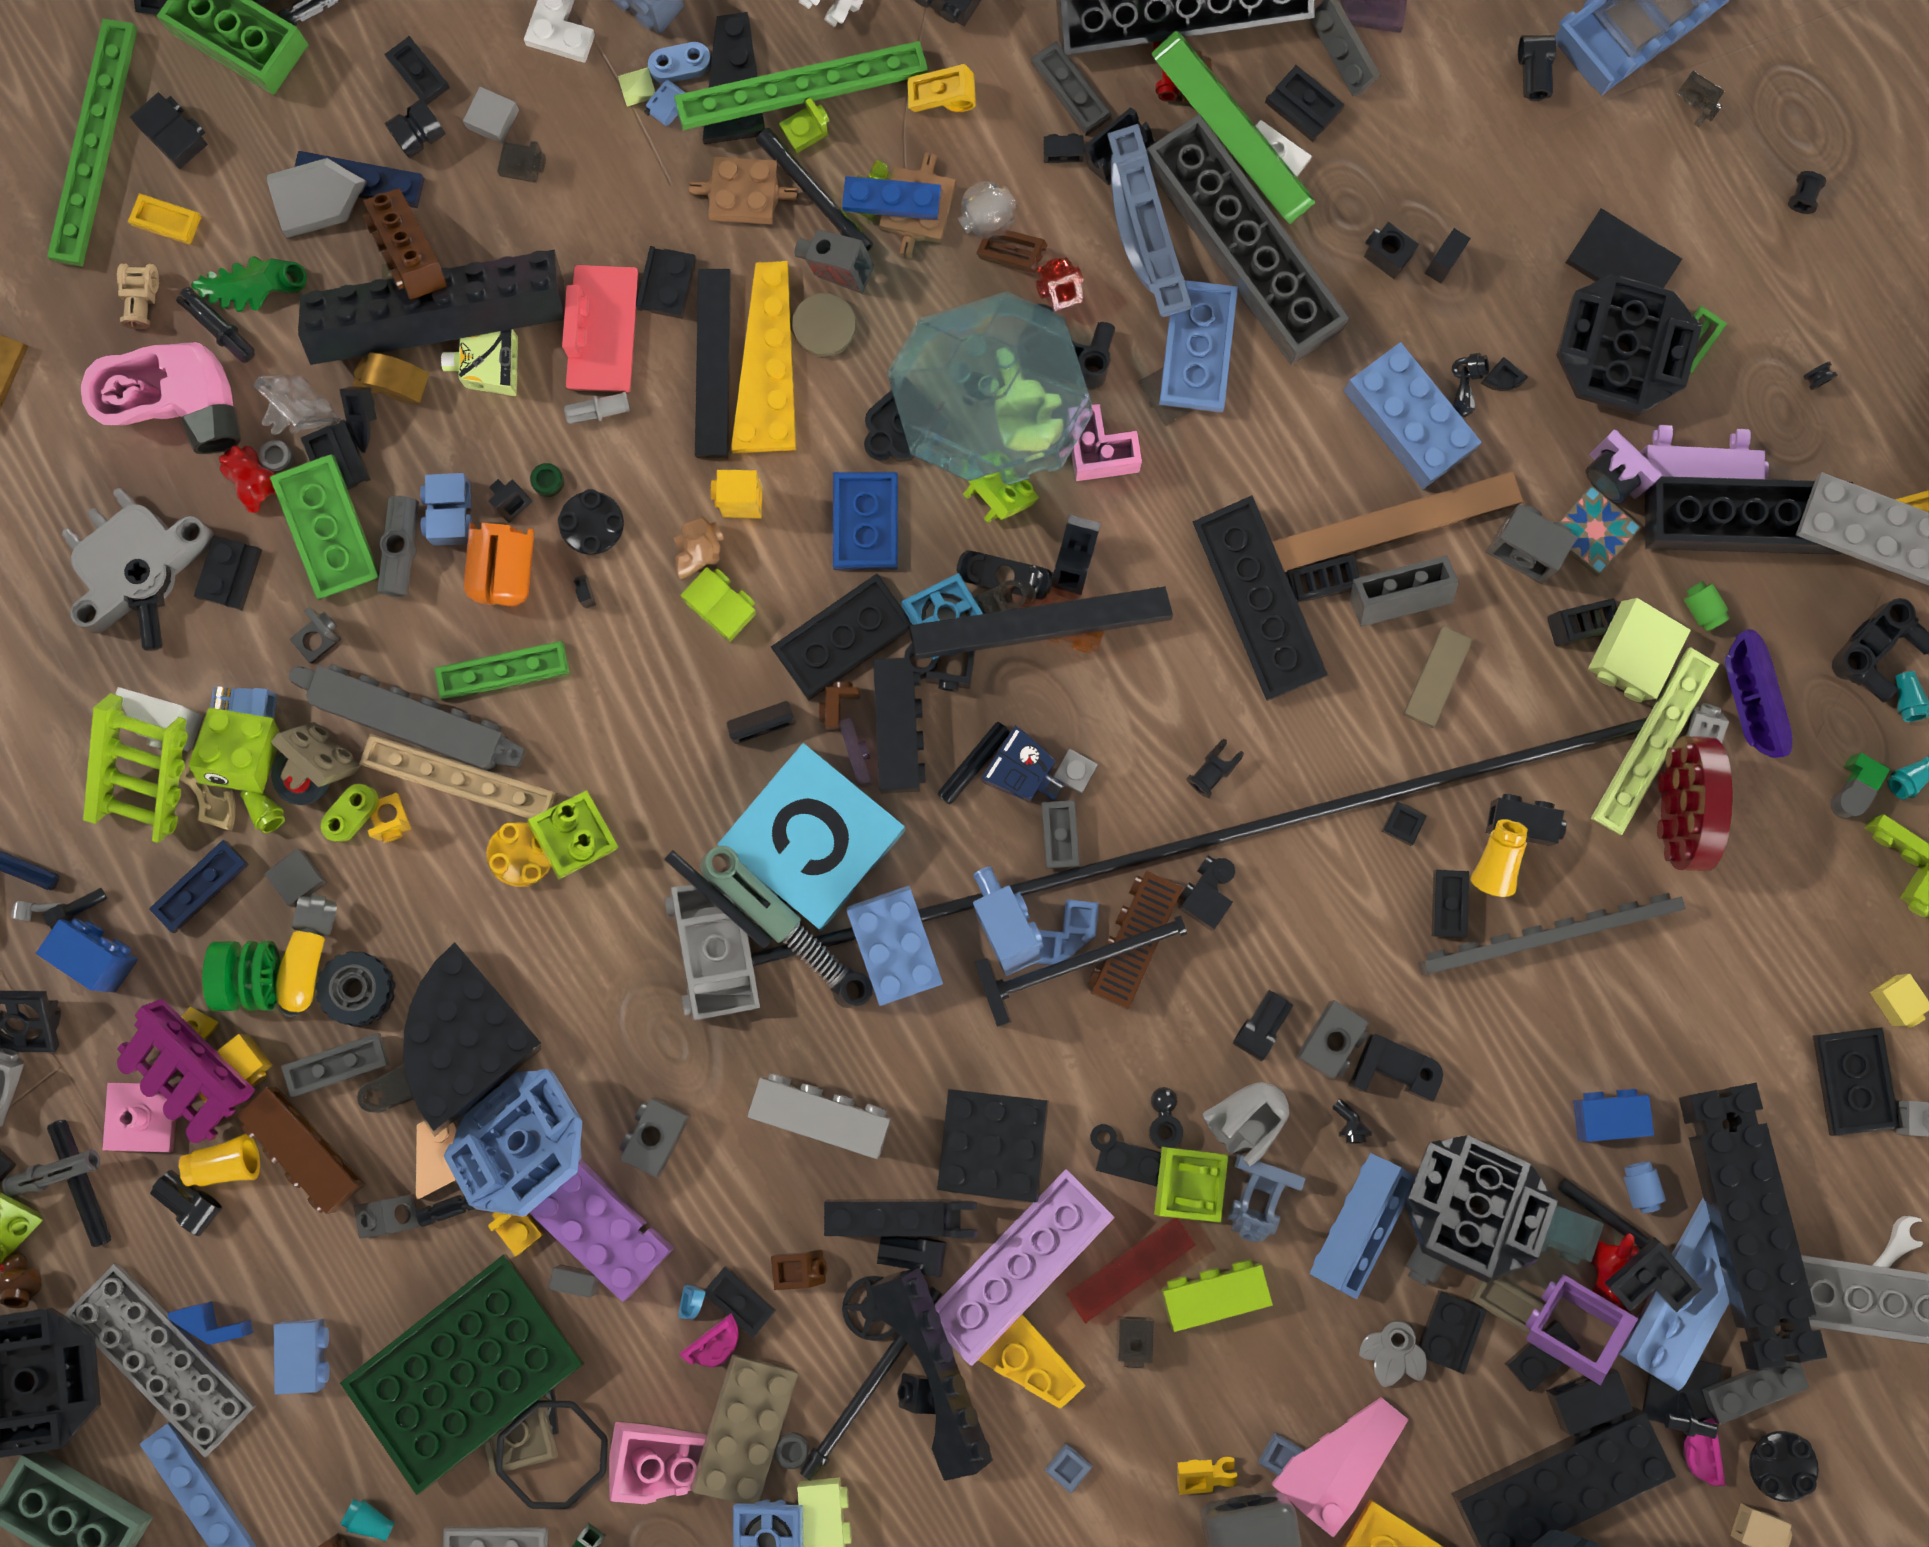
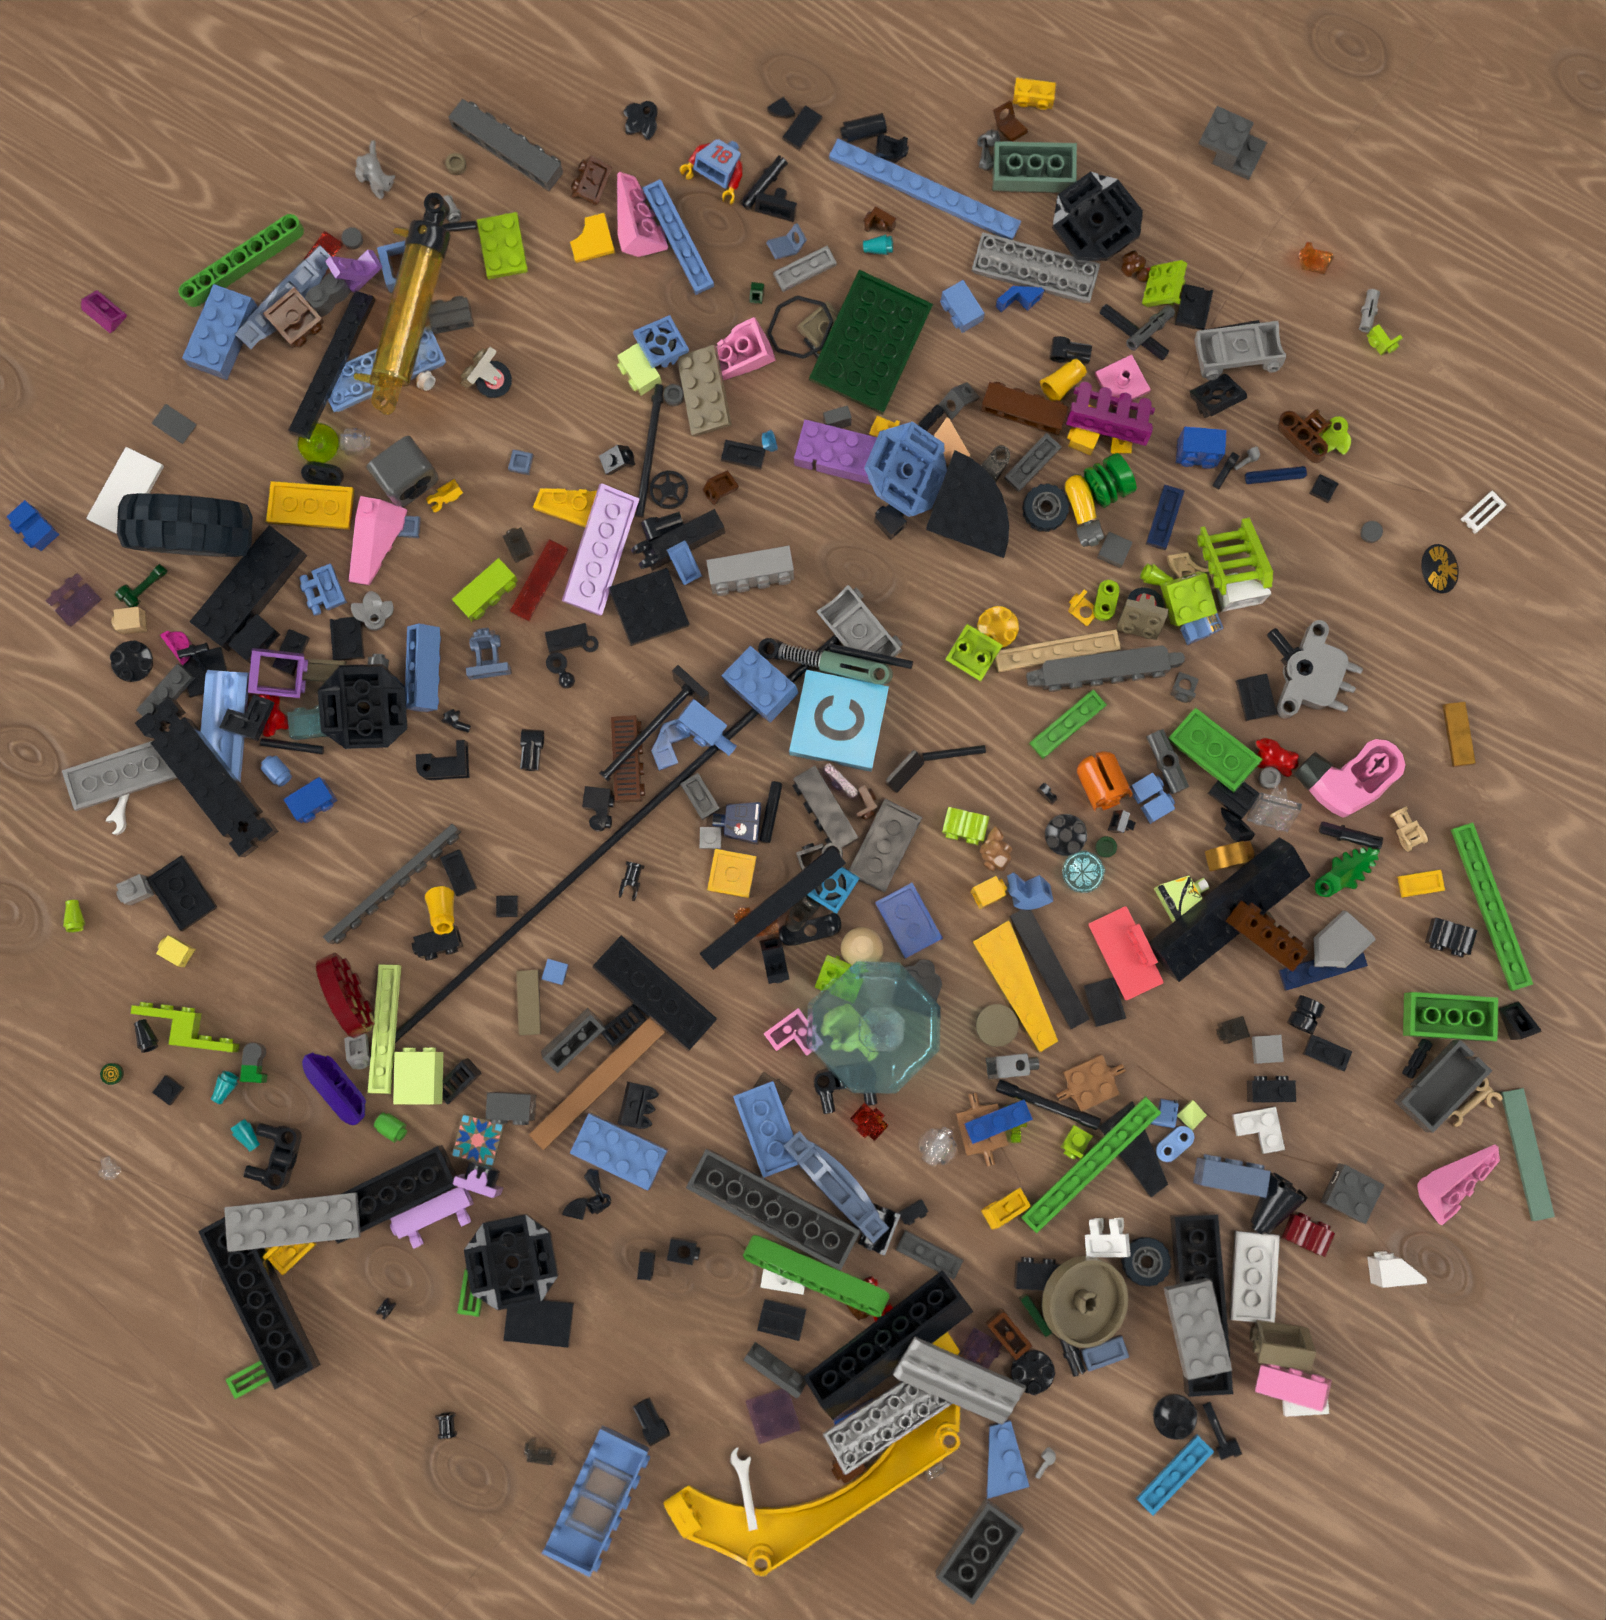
camera: 155 degrees right, 0 degrees up
(517, 59) = (1271, 1090): none -> black brick
(584, 1087) = (890, 520): none -> black brick
(596, 408) = (1101, 903): light grey axle -> none
(596, 461) = (1083, 872): none -> clear light blue dish
(649, 1157) = (833, 503): dark grey brick -> none
(678, 712) = (954, 753): none -> black bar
(683, 467) = (1030, 893): none -> medium blue brick
(714, 1345) = (744, 425): dark pink plate -> none
(909, 1181) = (684, 562): none -> medium blue tile
(909, 1309) = (646, 494): black arch -> none
(949, 507) = (861, 945): none -> tan brick
(1010, 261) = (893, 1130): reddish brown tile -> none
(1071, 707) = (731, 873): none -> yellow tile
(1191, 1184) = (528, 641): lime plate -> none
(1249, 1119) = (513, 693): light grey hair -> none
(1315, 1049) = (492, 773): dark grey brick -> none
(1359, 465) = (636, 1104): none -> black plate
(1381, 699) = (555, 971): none -> medium blue tile
(1443, 1426) = (328, 586): none -> medium blue plate

